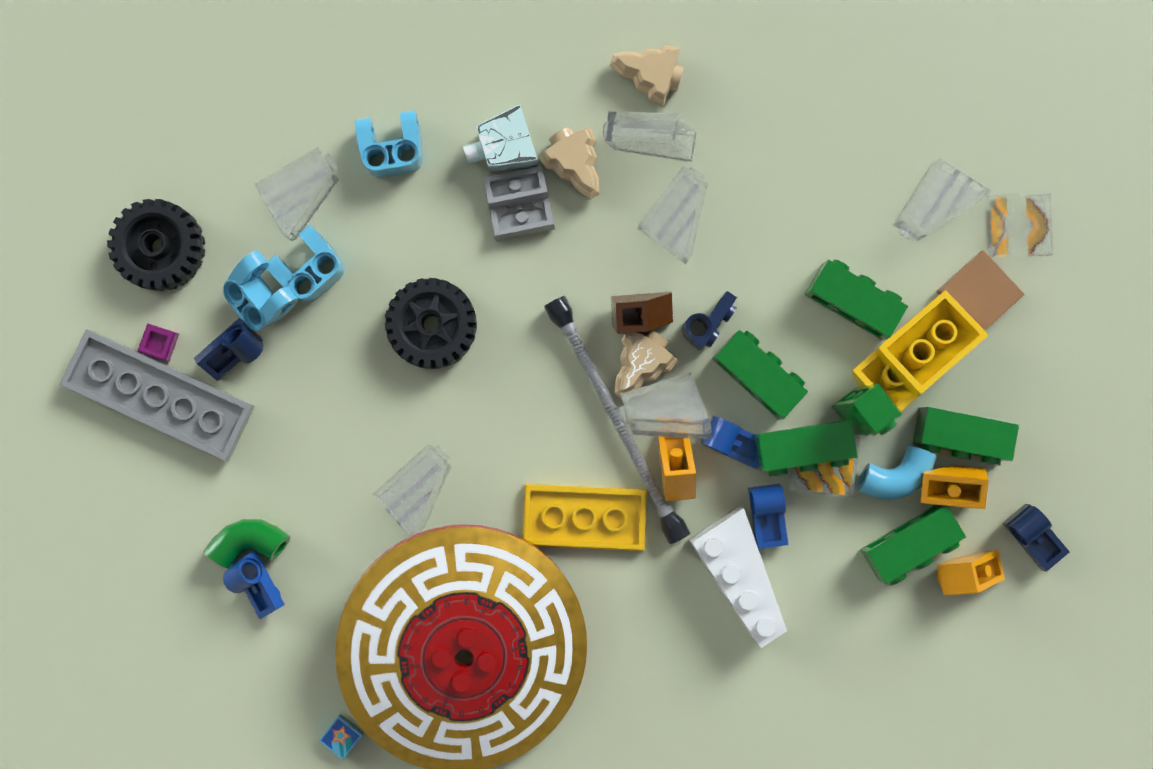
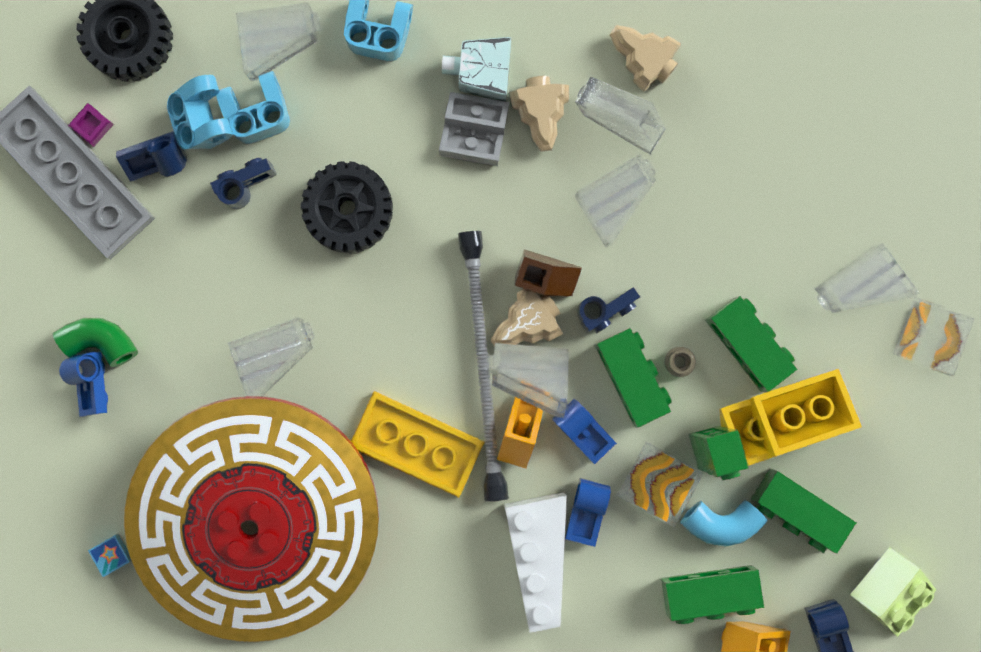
camera: 25 degrees right, 0 degrees up
(330, 327) = (253, 173): none -> dark blue plate
(805, 338) = (688, 357): none -> dark tan plate
(806, 447) = (647, 463): green brick -> none
(955, 486) = (773, 556): light orange slope -> none
(983, 290) = (874, 383): medium nougat tile -> none
(1079, 474) = (894, 592): none -> yellowish green slope

